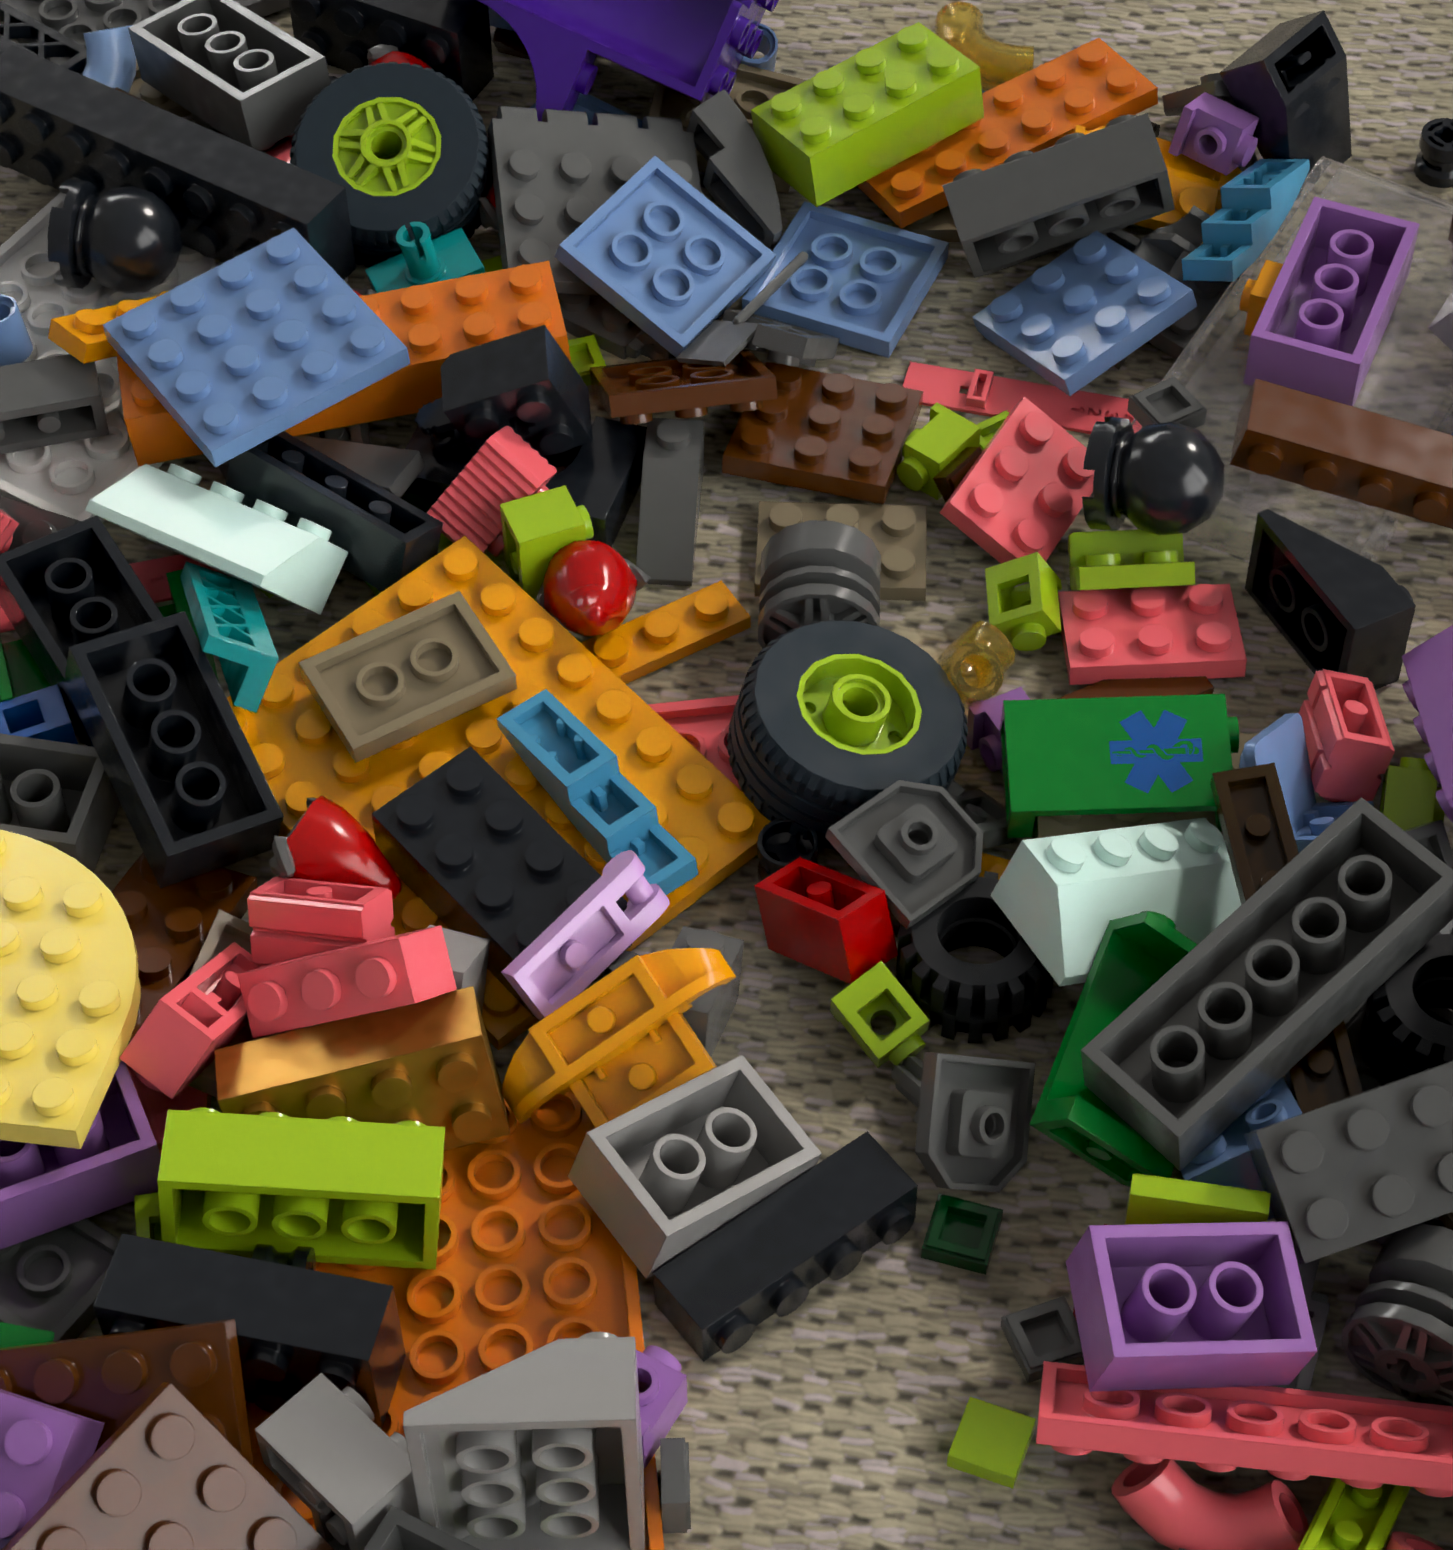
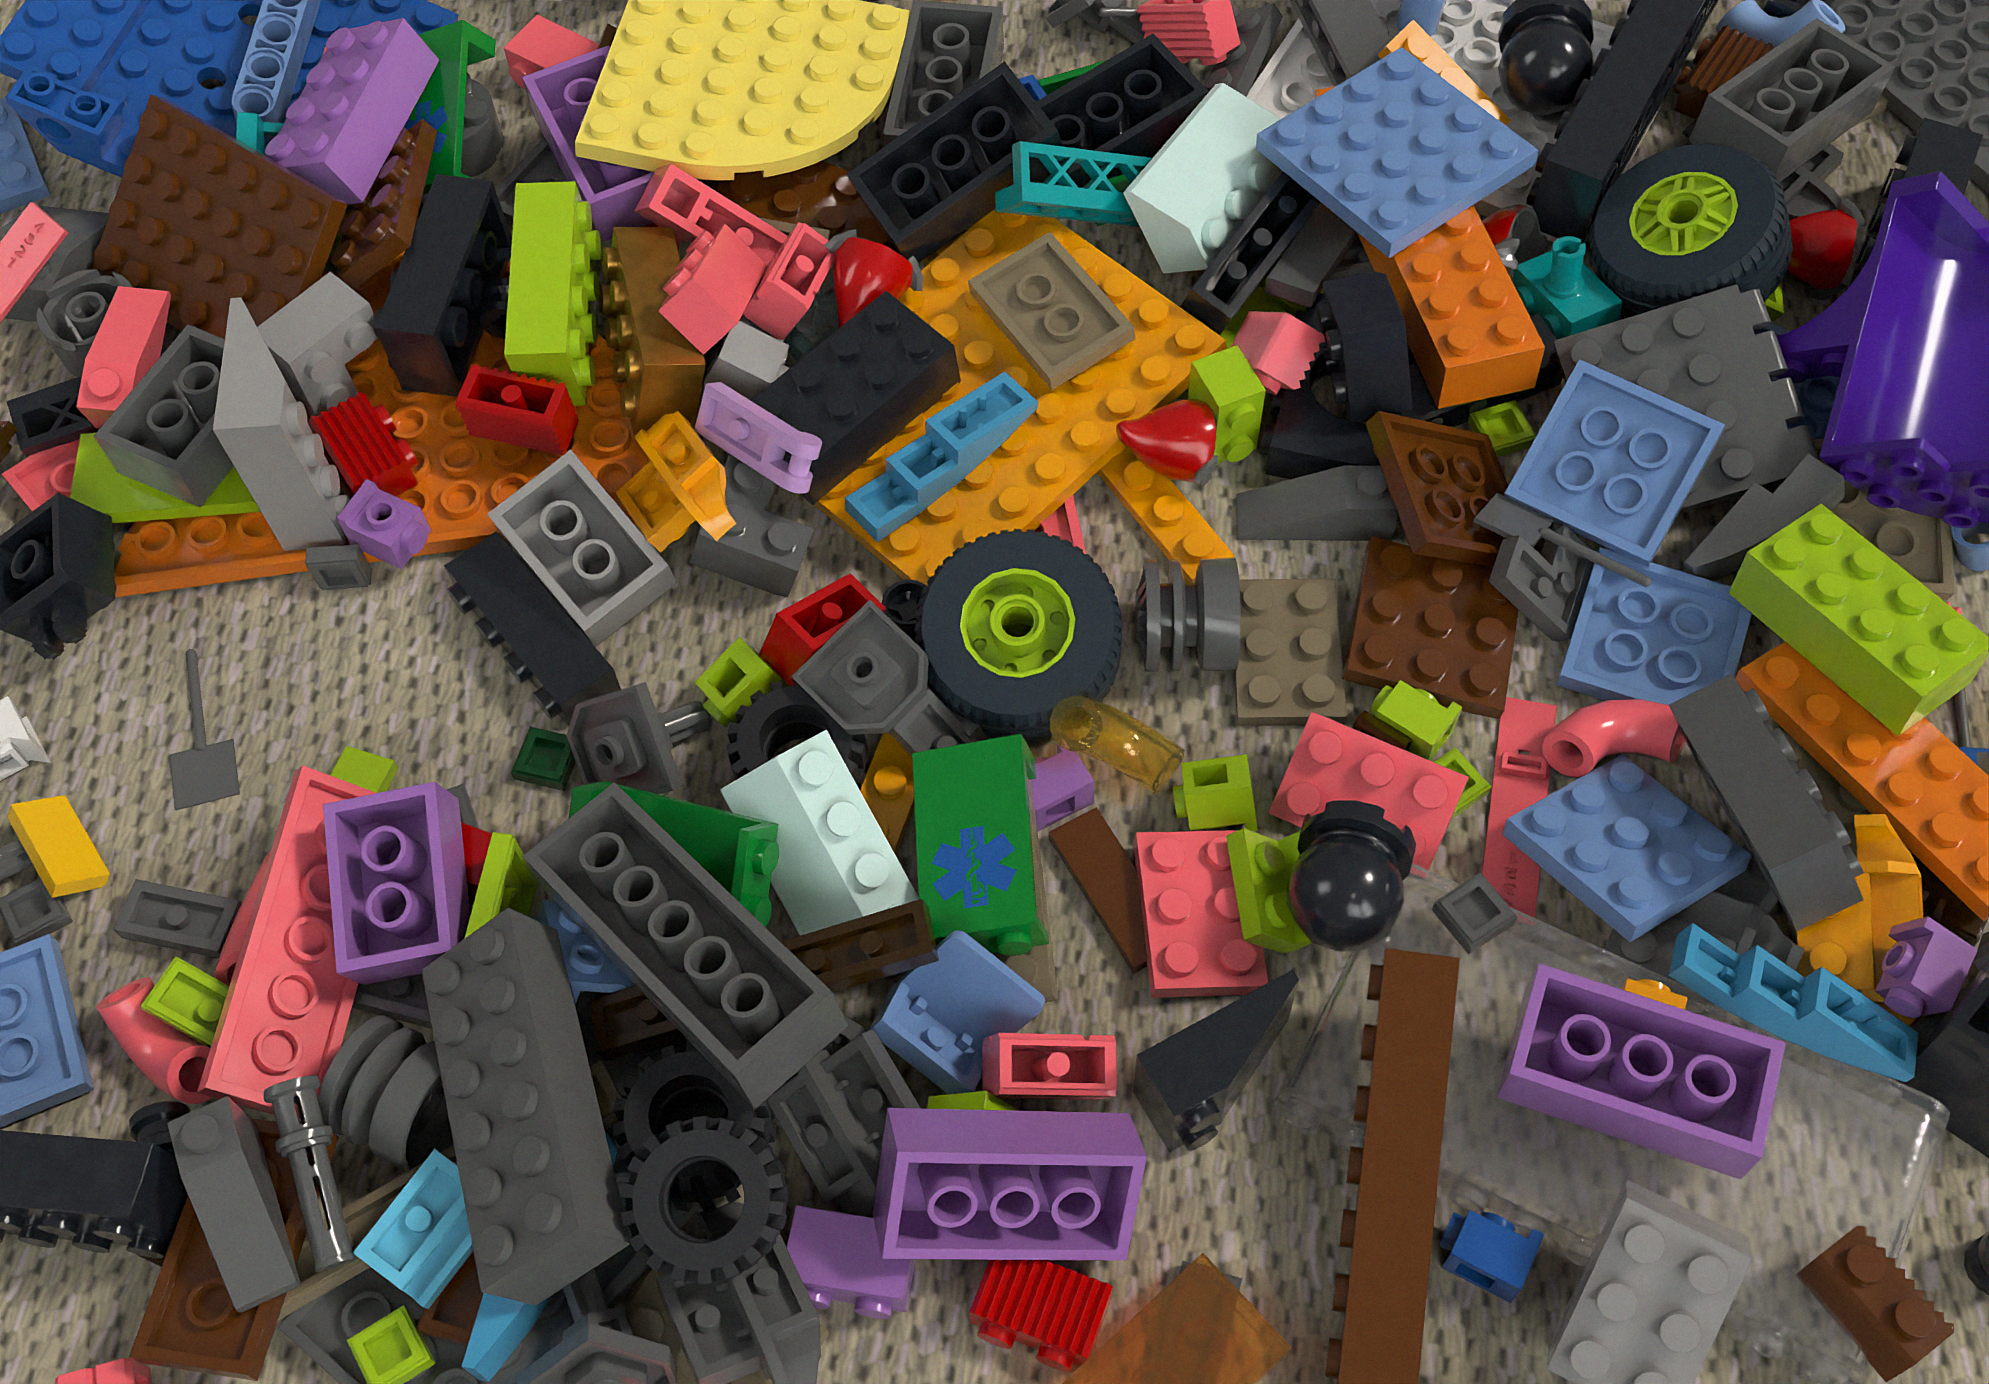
camera: 90 degrees right, 10 degrees up
(477, 1238) = (517, 410): none -> red brick
(948, 313) = (1609, 730): none -> coral cylinder

